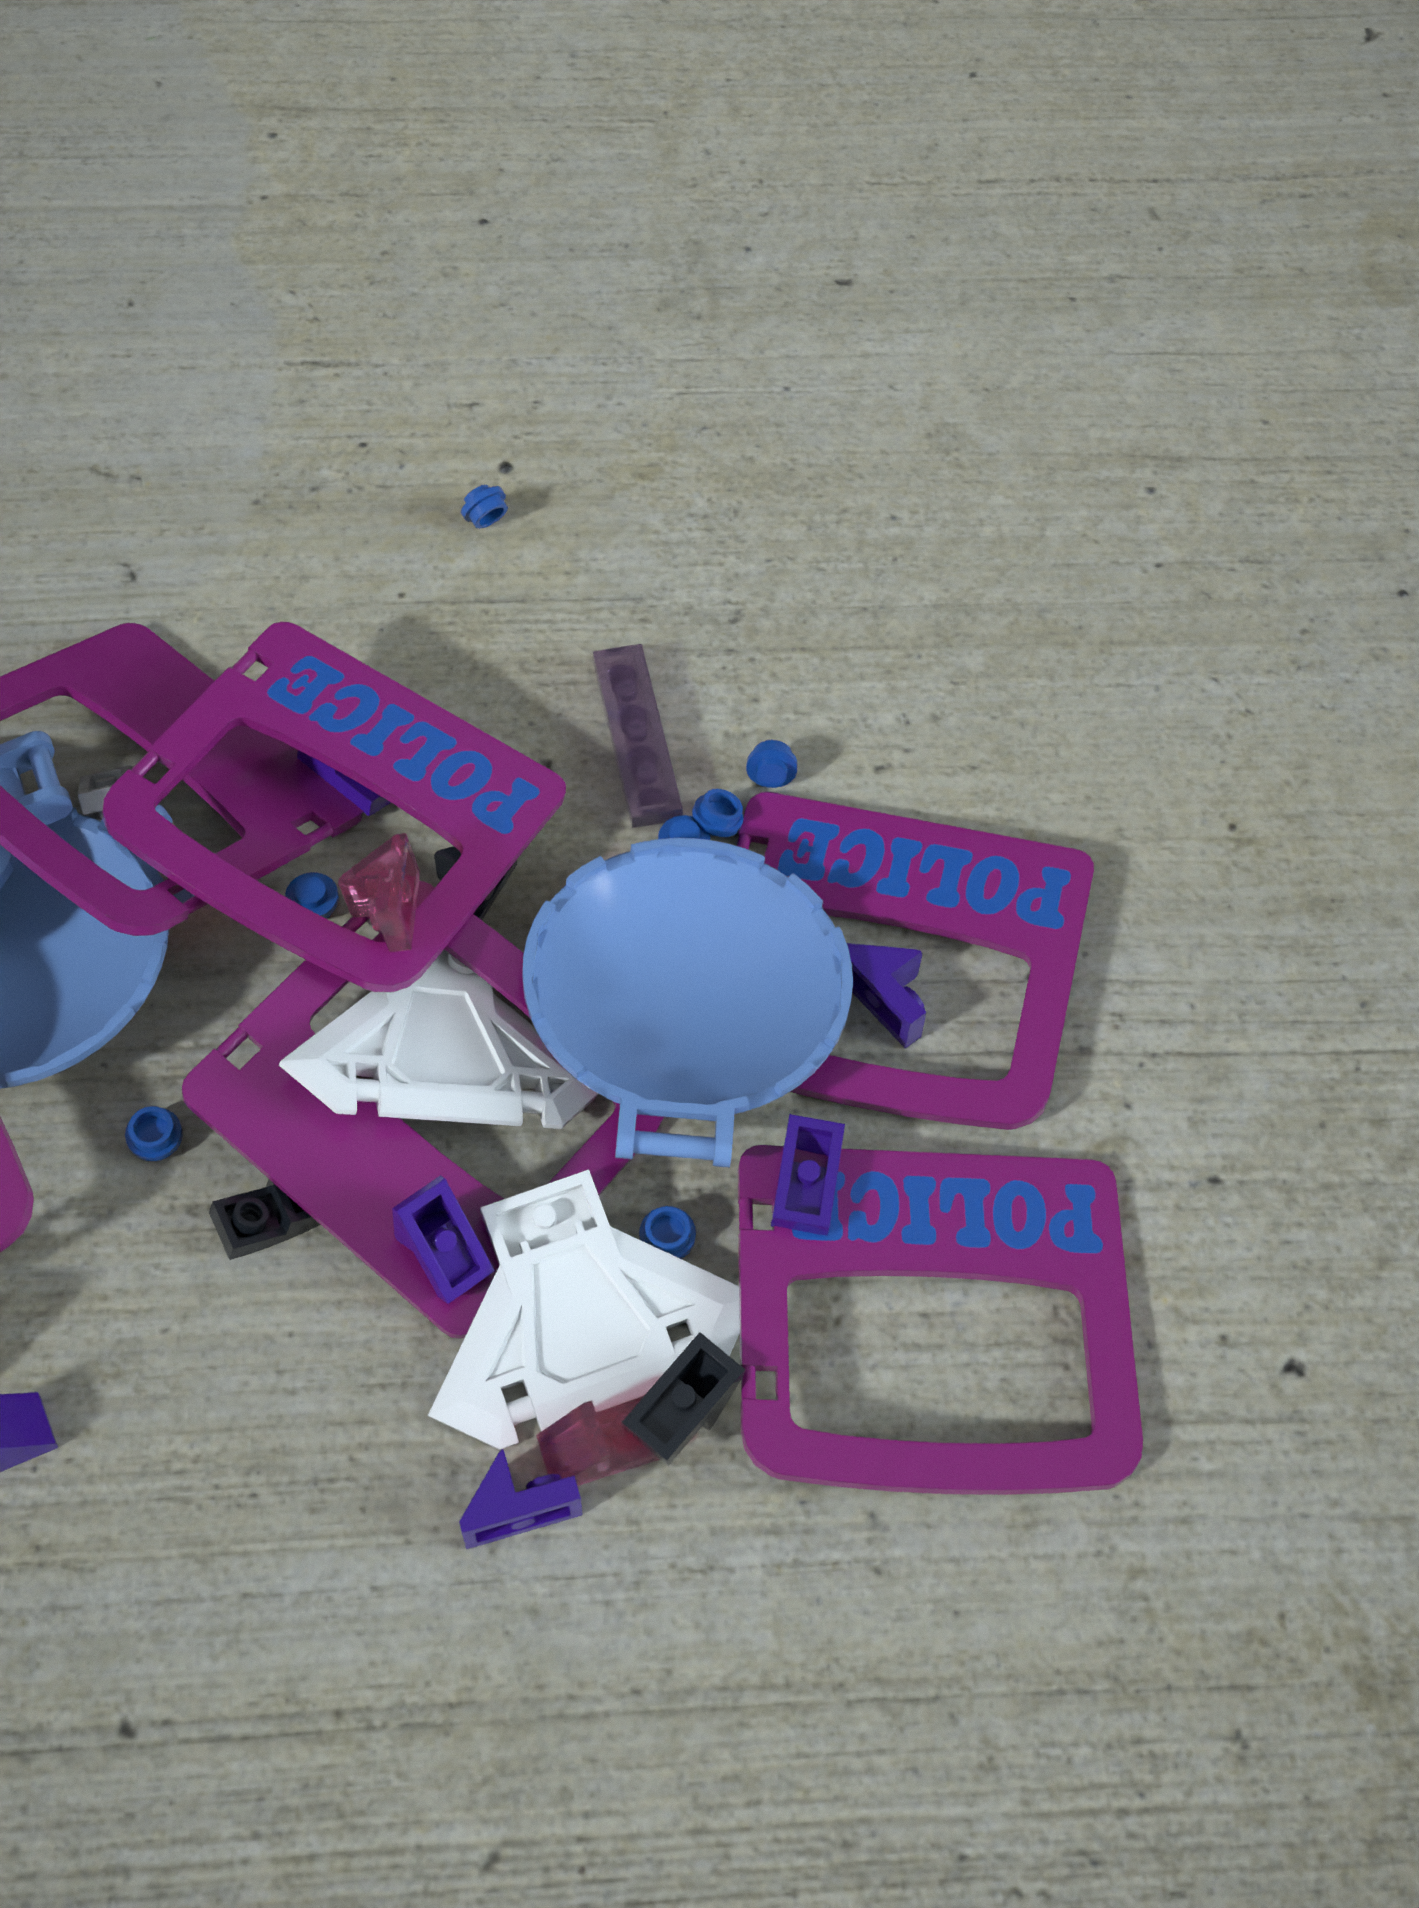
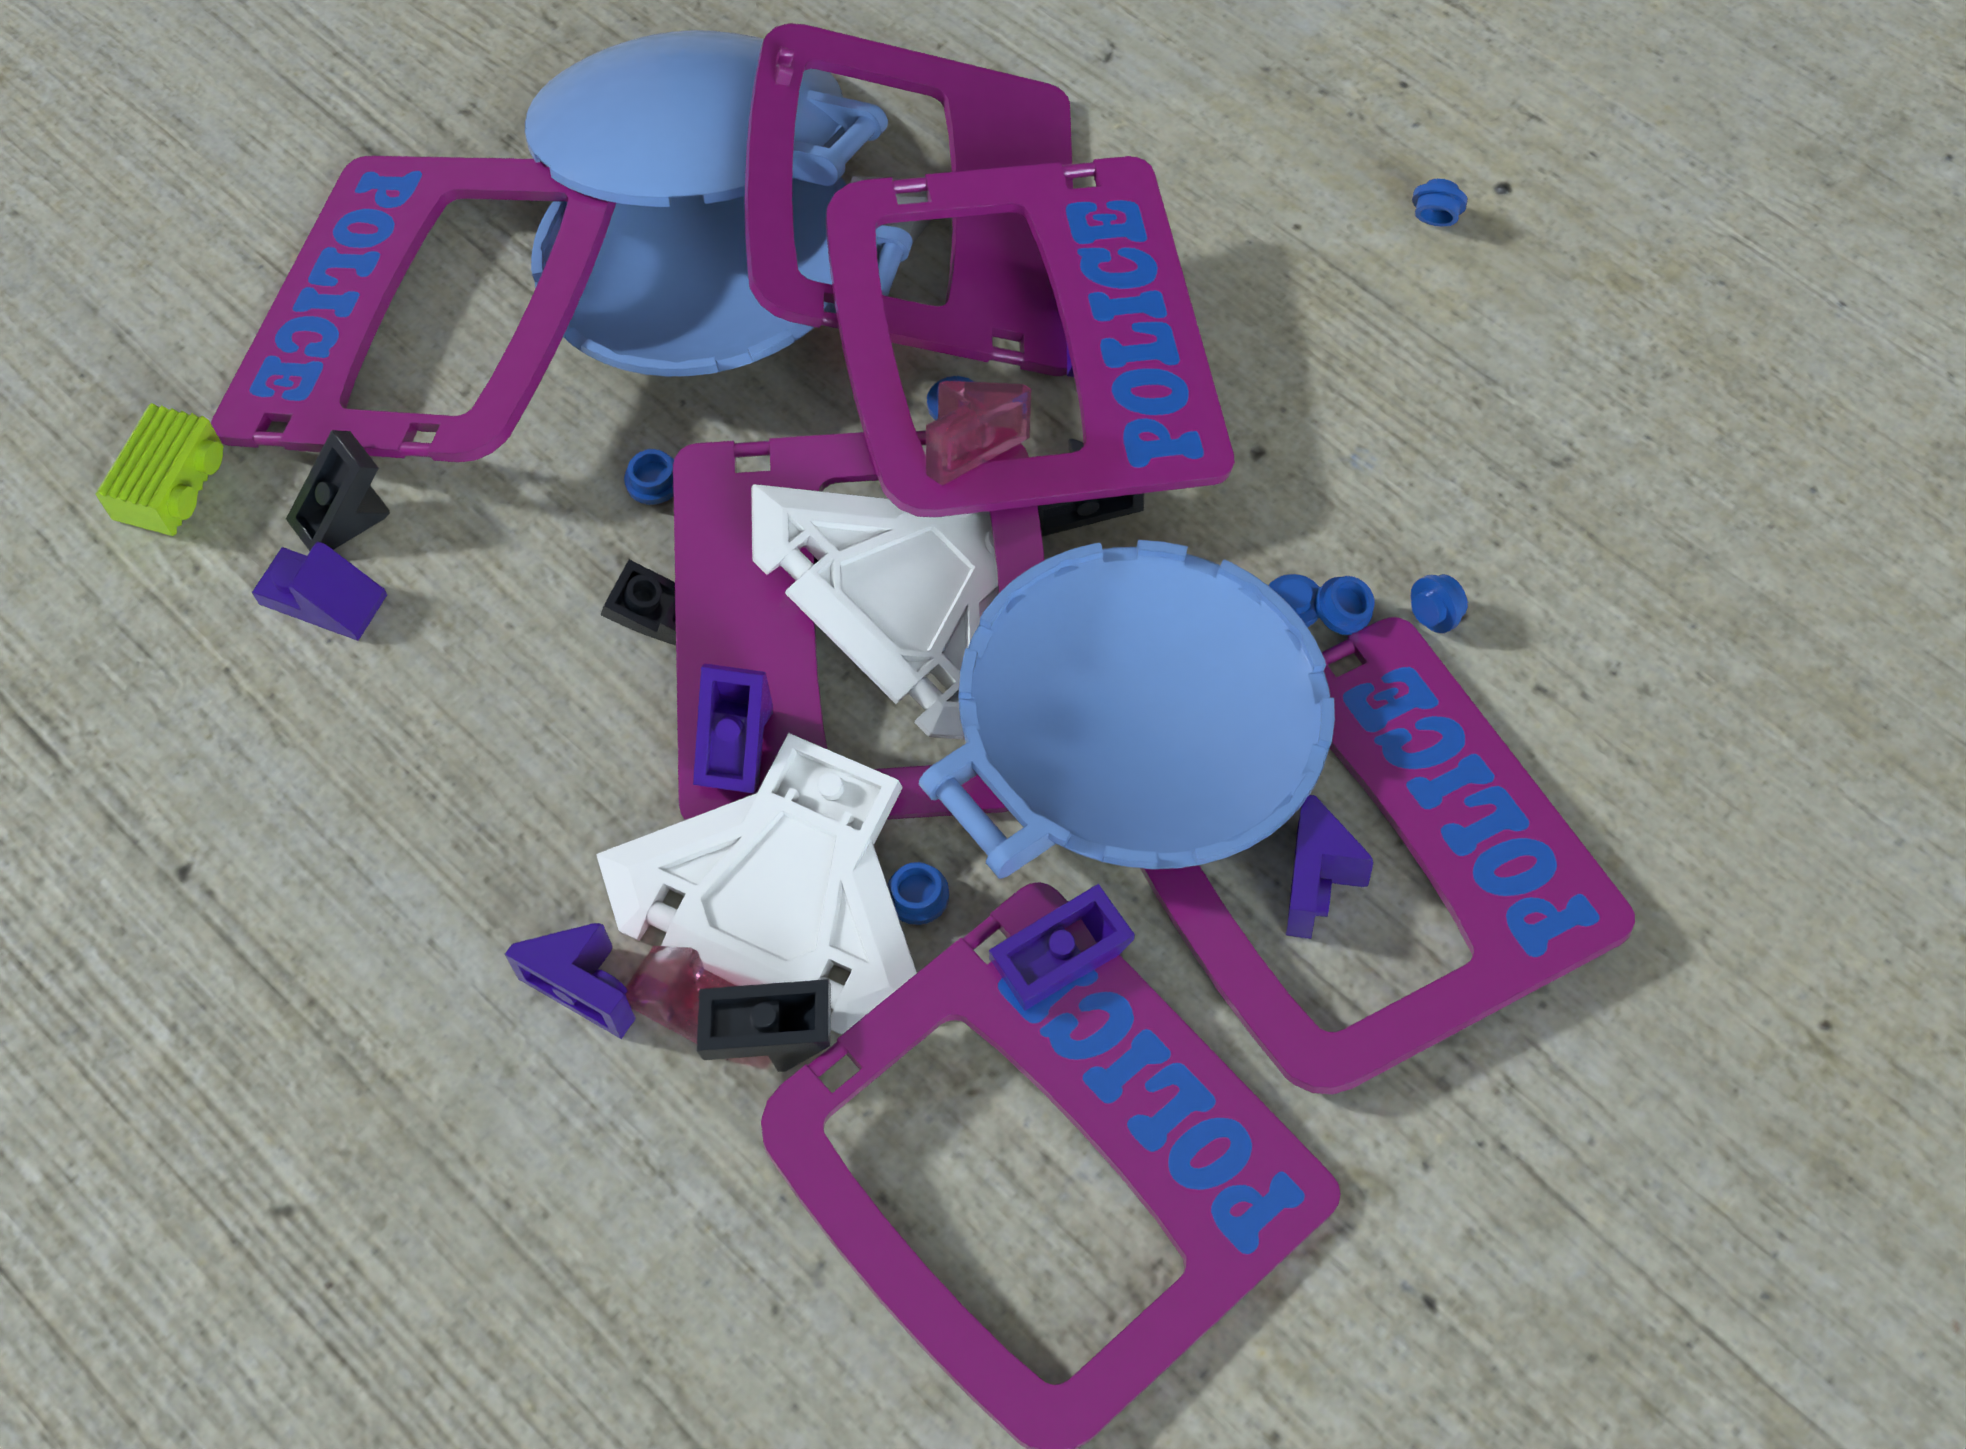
camera: 55 degrees right, 0 degrees up
(637, 735) = (1351, 485): clear purple plate -> none

